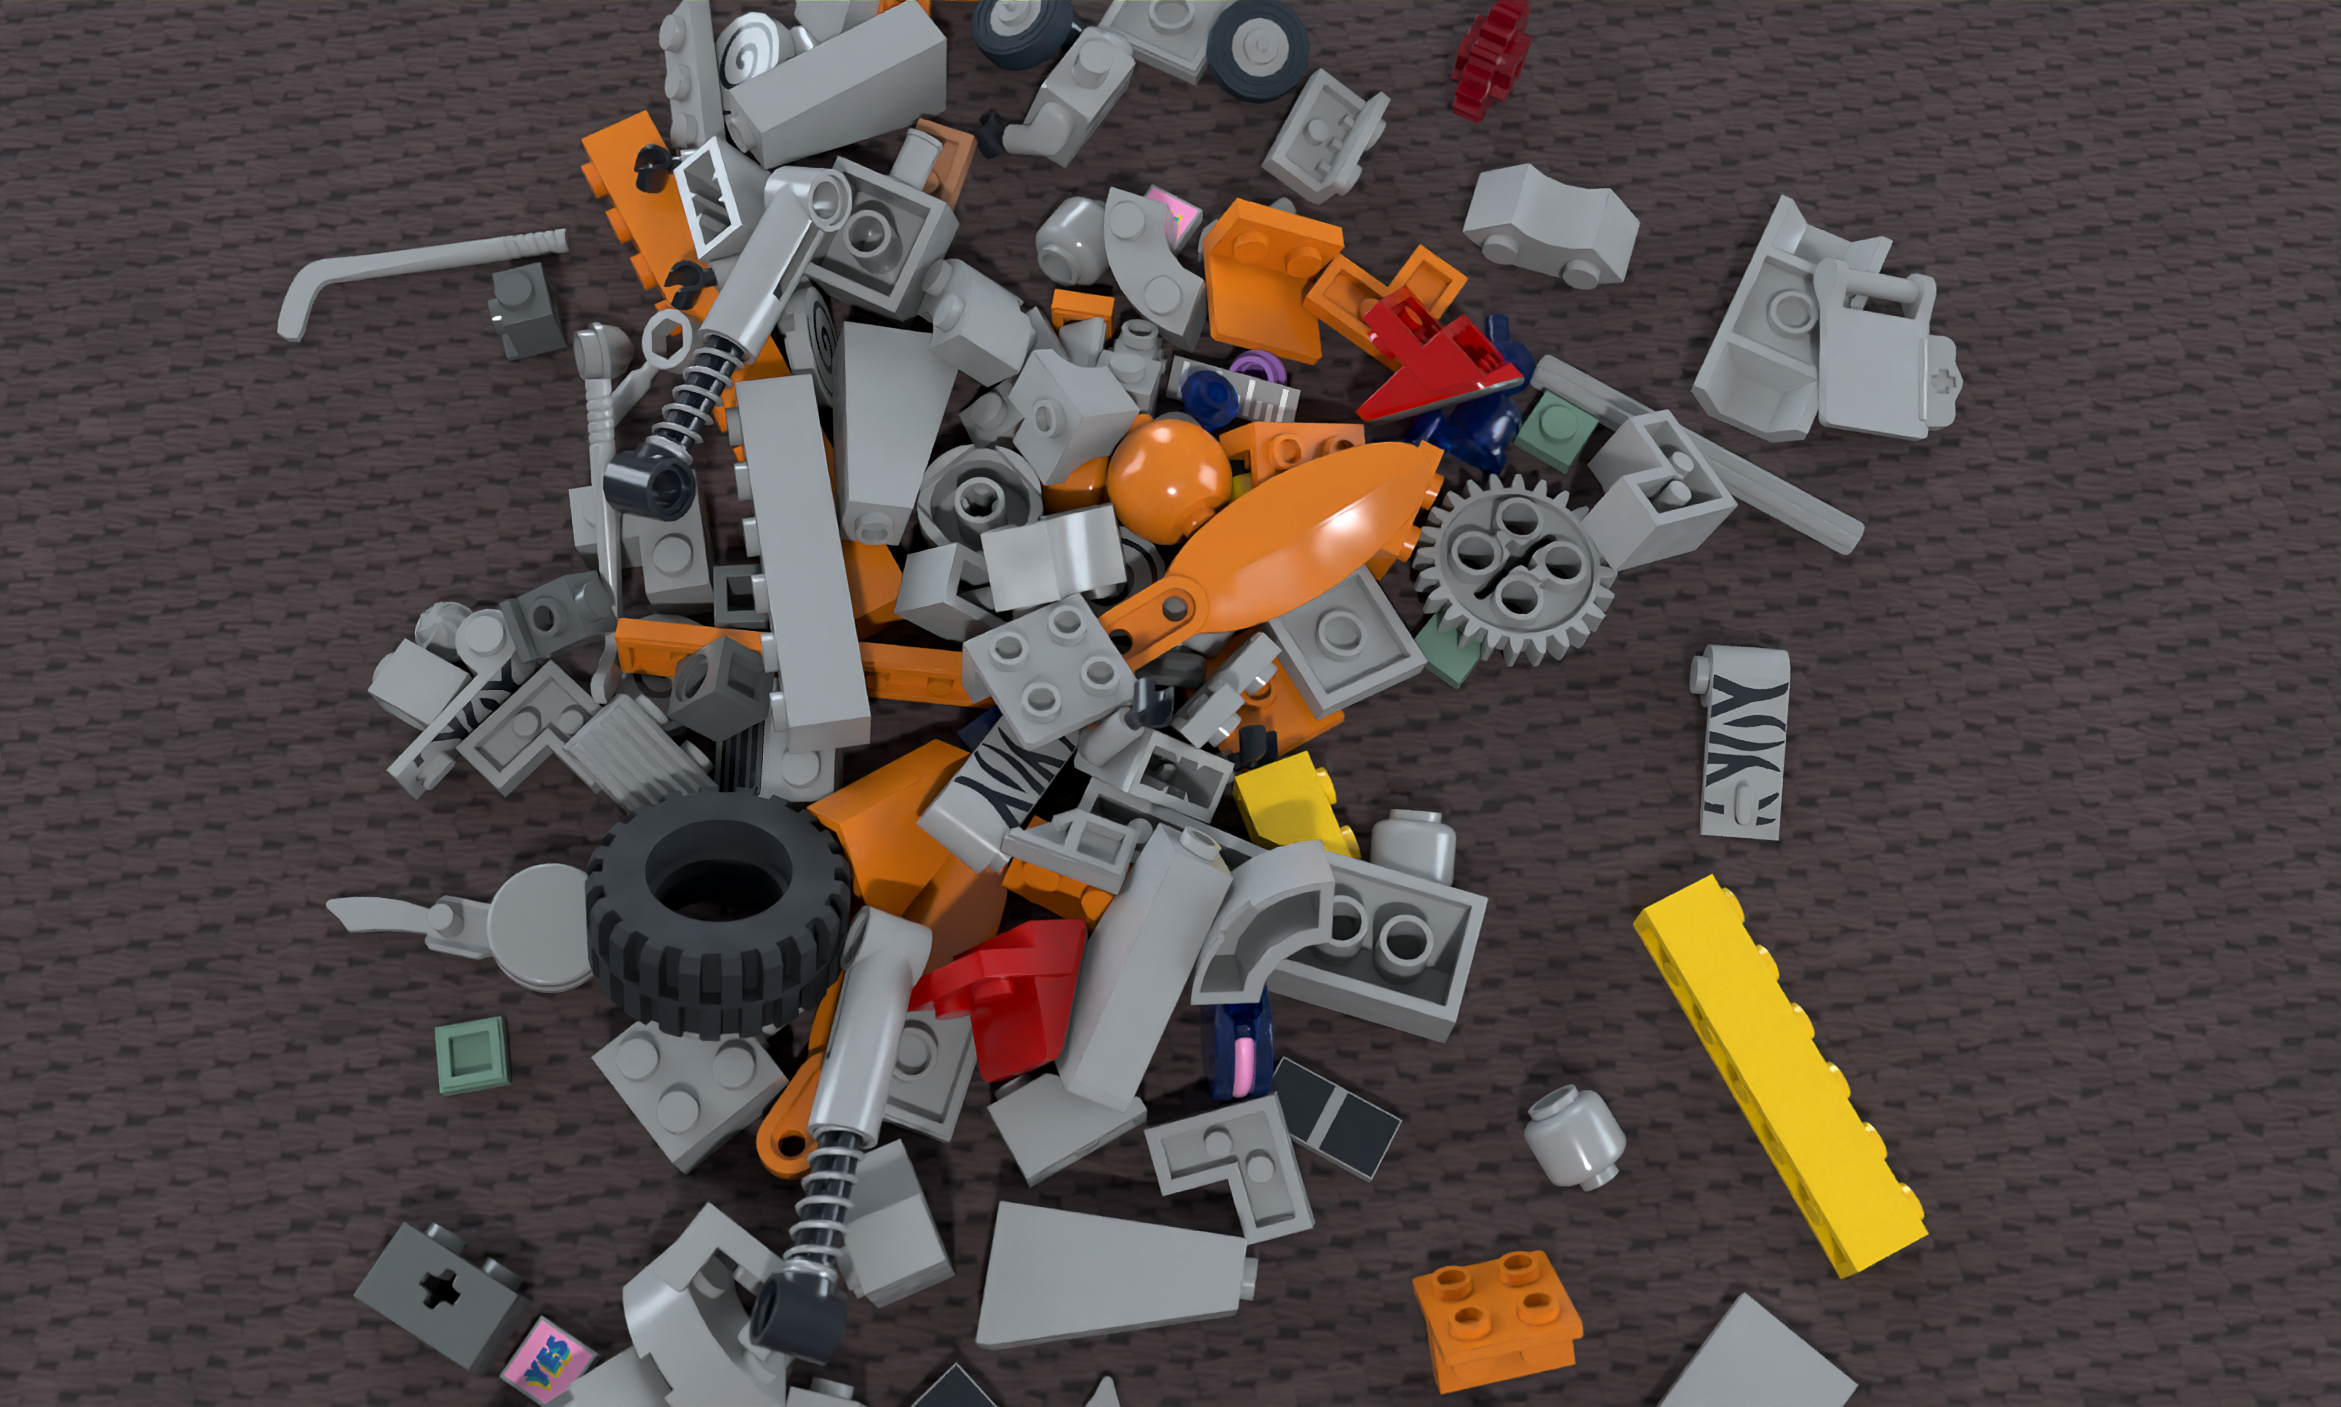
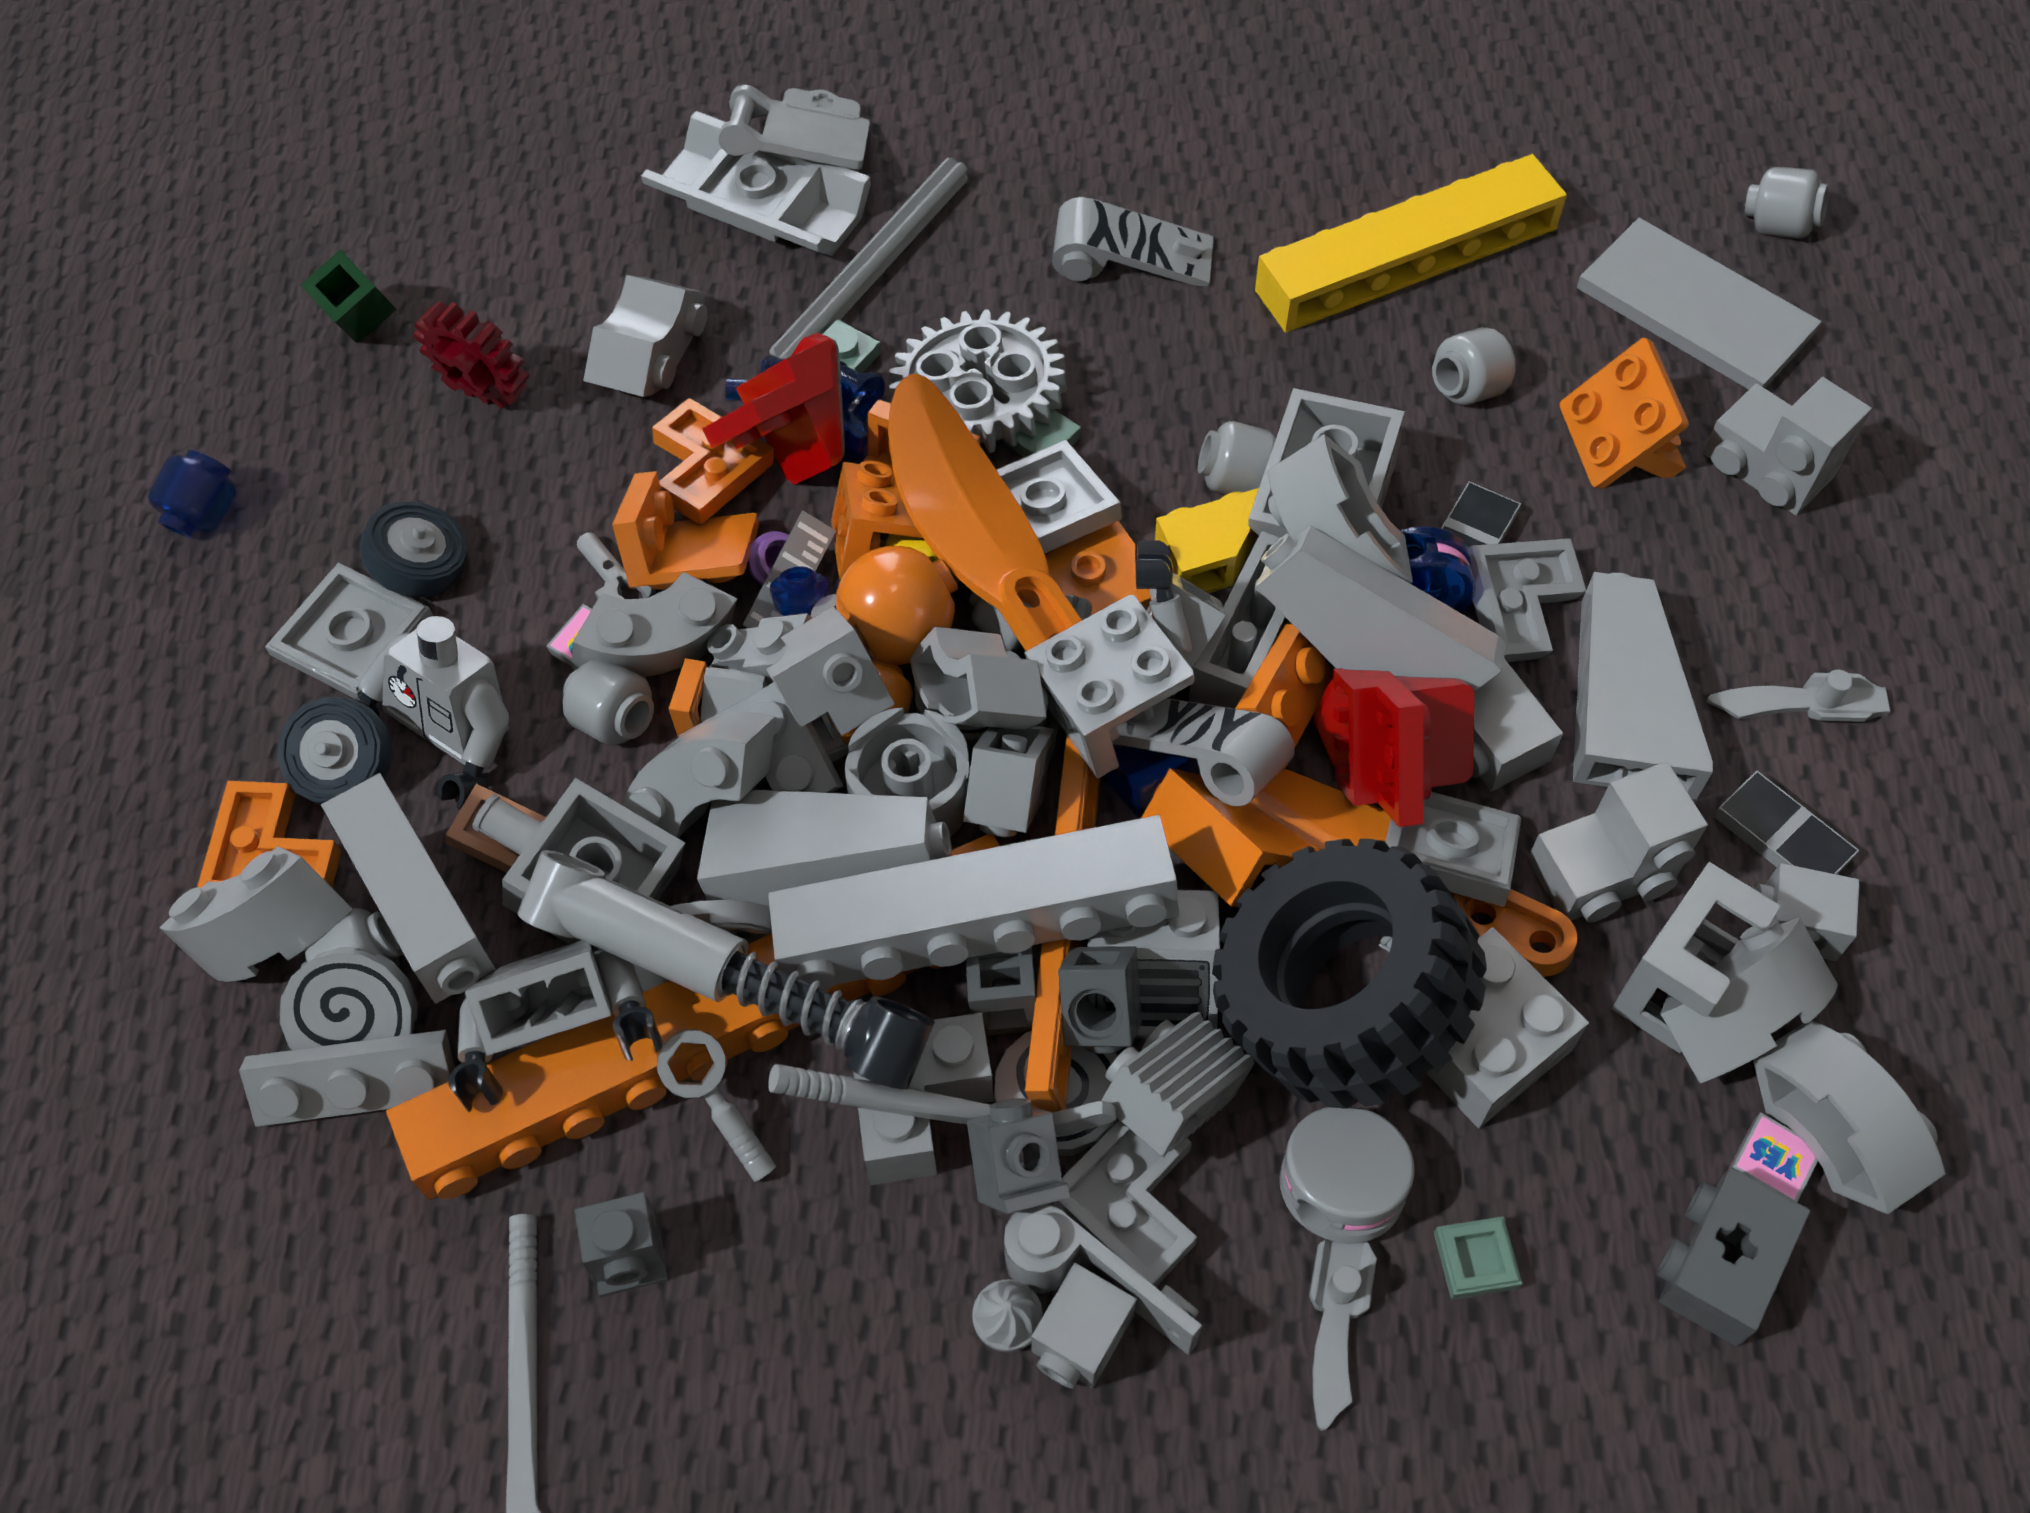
camera: 85 degrees left, 10 degrees down
(602, 351) = (678, 1166): light grey plate -> none
(882, 961) = (1548, 839): piece -> none
(1077, 847) = (1274, 660): light grey tile -> none
(1211, 710) = (1096, 570): light grey plate -> none
(1325, 138) = (524, 496): light grey bracket -> none
(1656, 492) = (920, 268): light grey brick -> none

